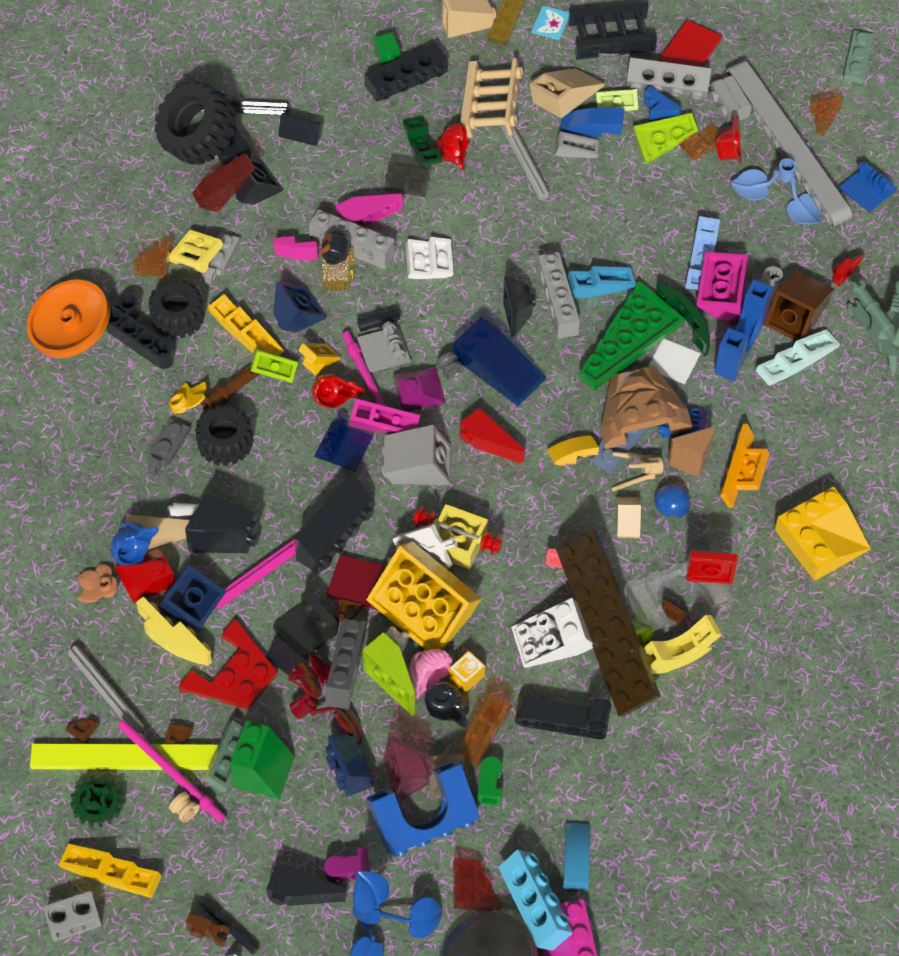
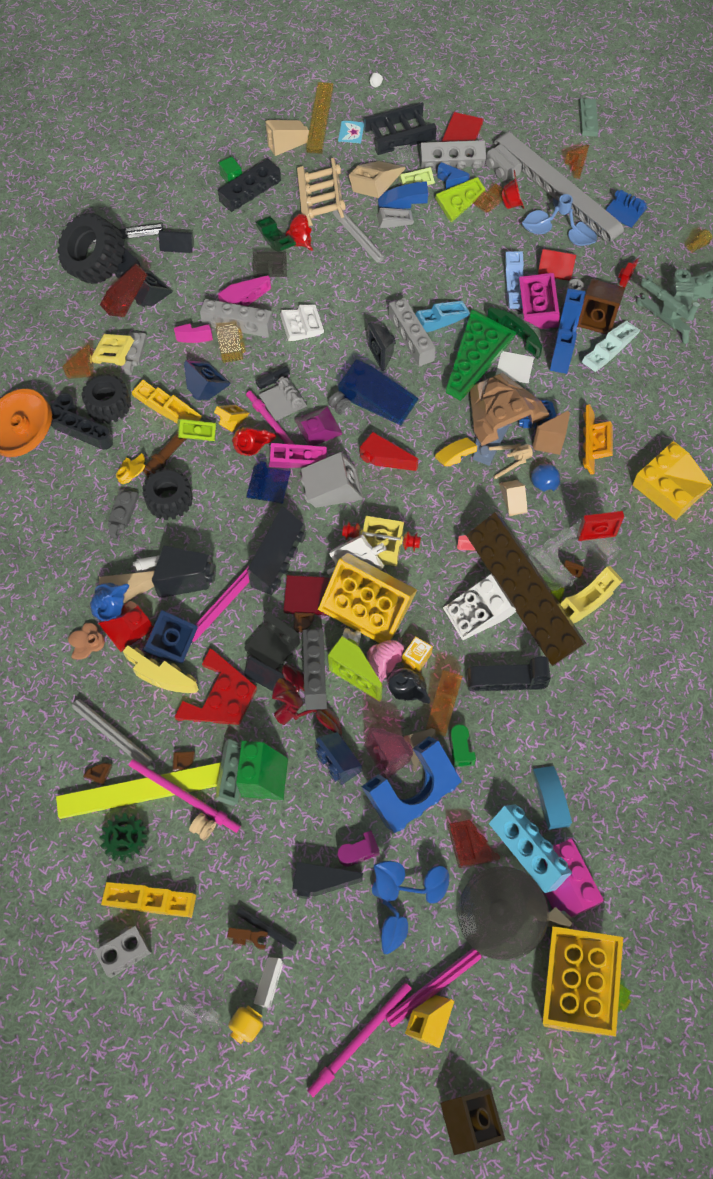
camera: 10 degrees left, 5 degrees up
(335, 248) = (225, 325): black head -> none
(761, 242) = (558, 263): none -> slope

